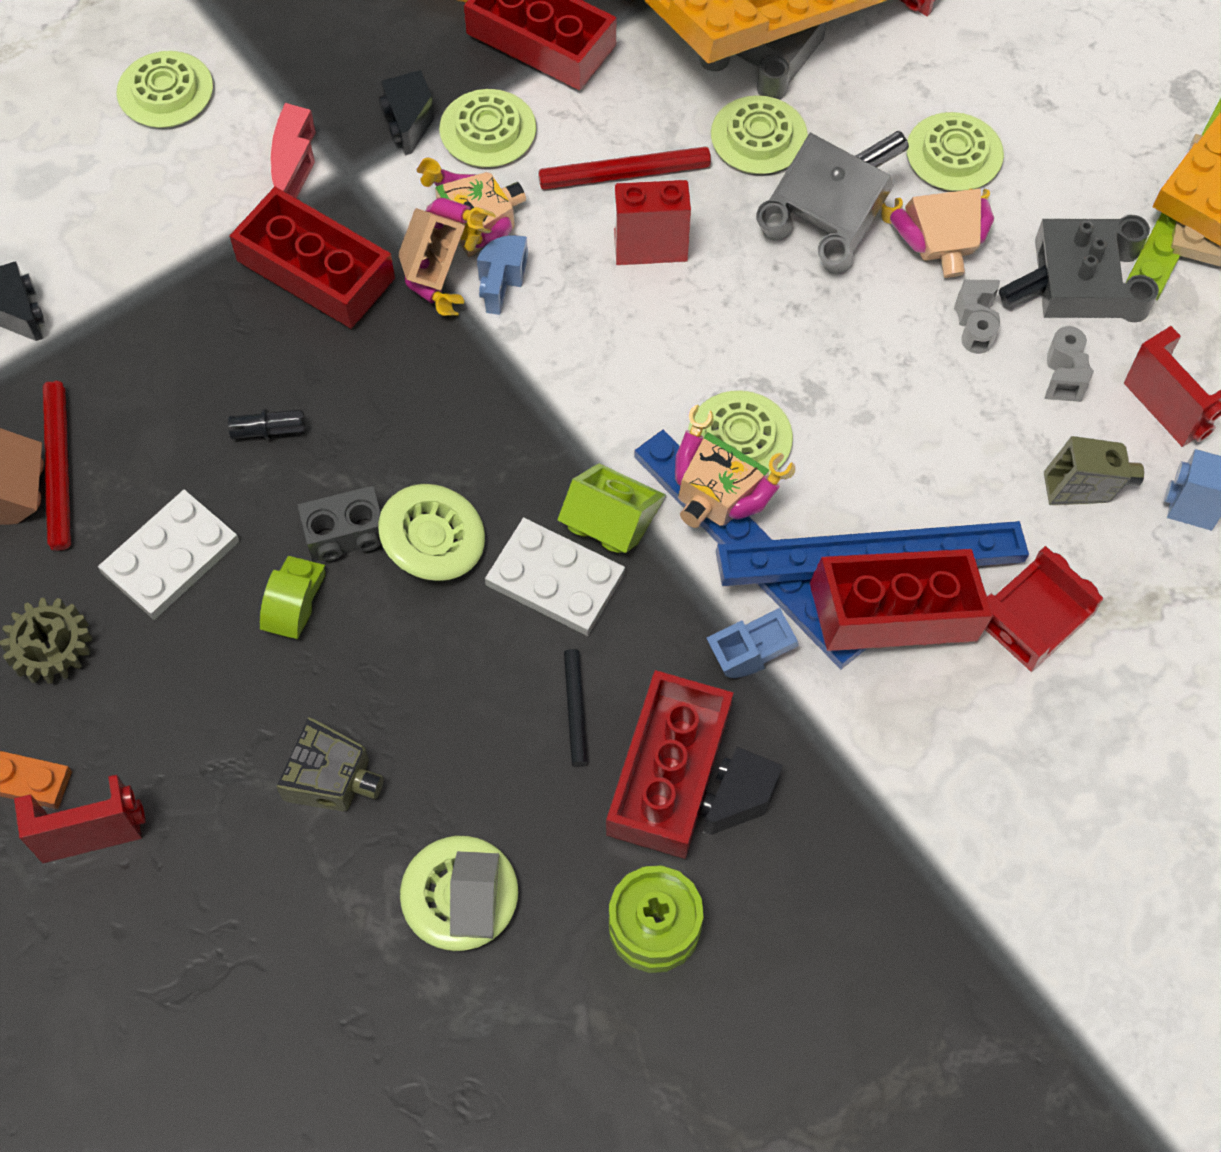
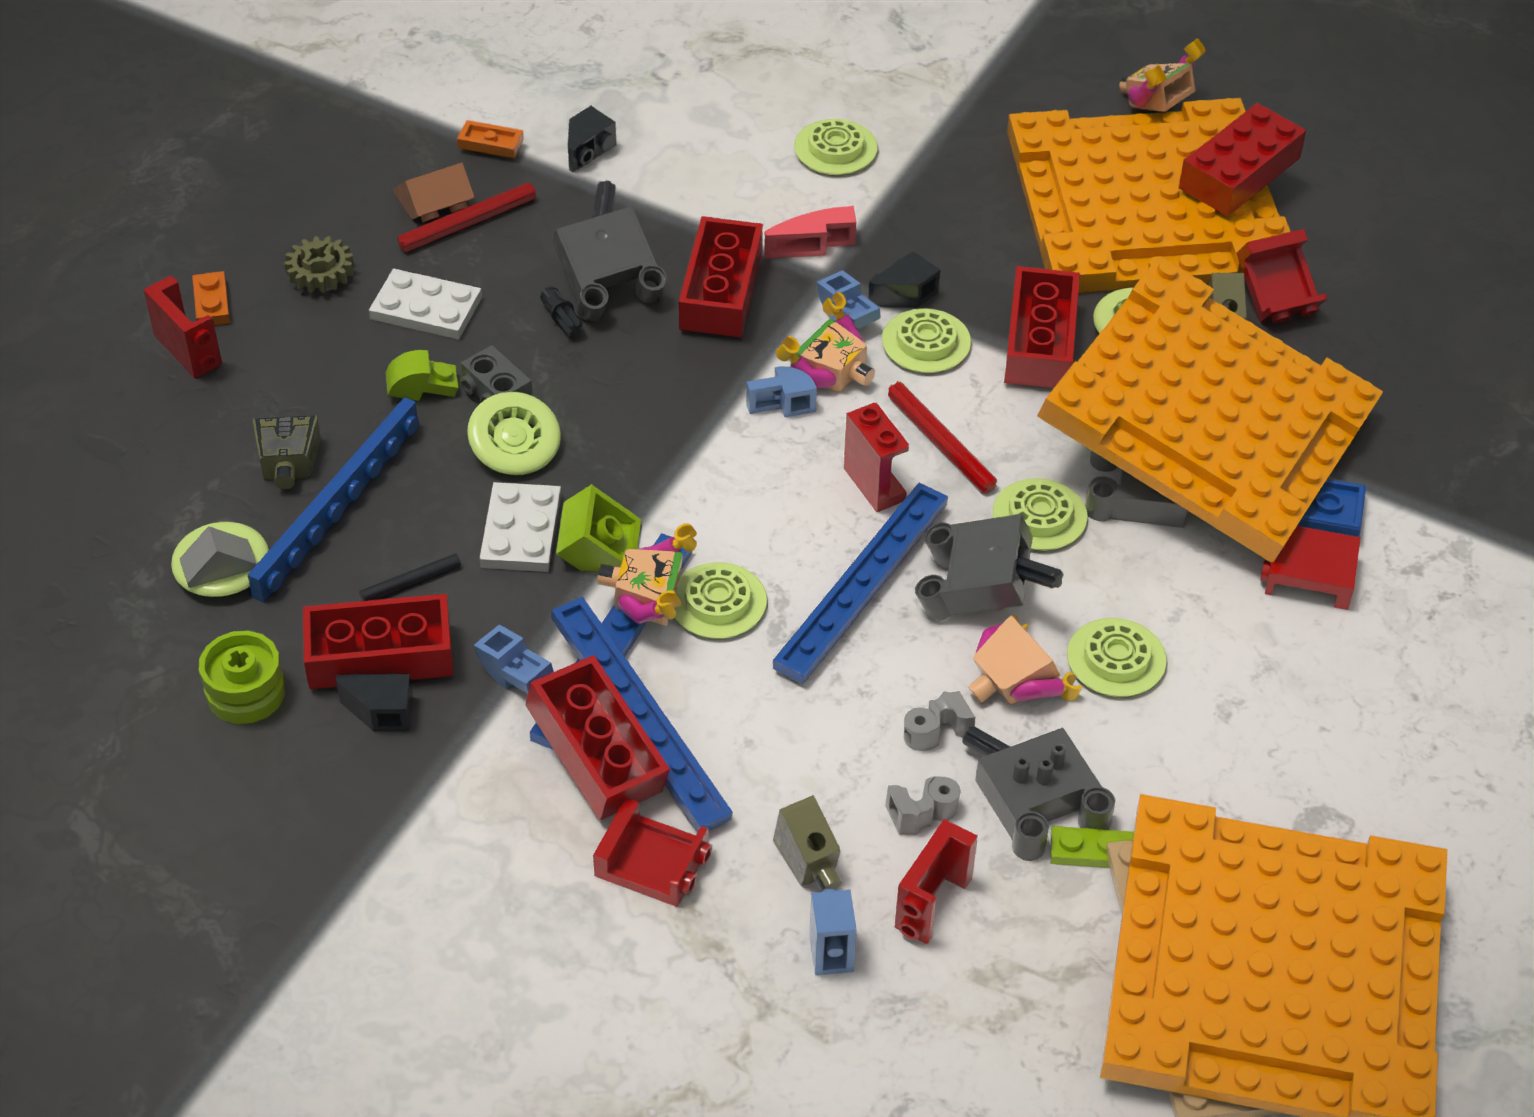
camera: 65 degrees right, 15 degrees down
(227, 345) = (607, 253): none -> dark grey piece
(398, 164) = (857, 306): none -> medium blue brick
(432, 245) = (762, 336): light nougat torso -> none
(440, 752) = (333, 500): none -> blue plate
(783, 309) = (859, 583): none -> blue plate

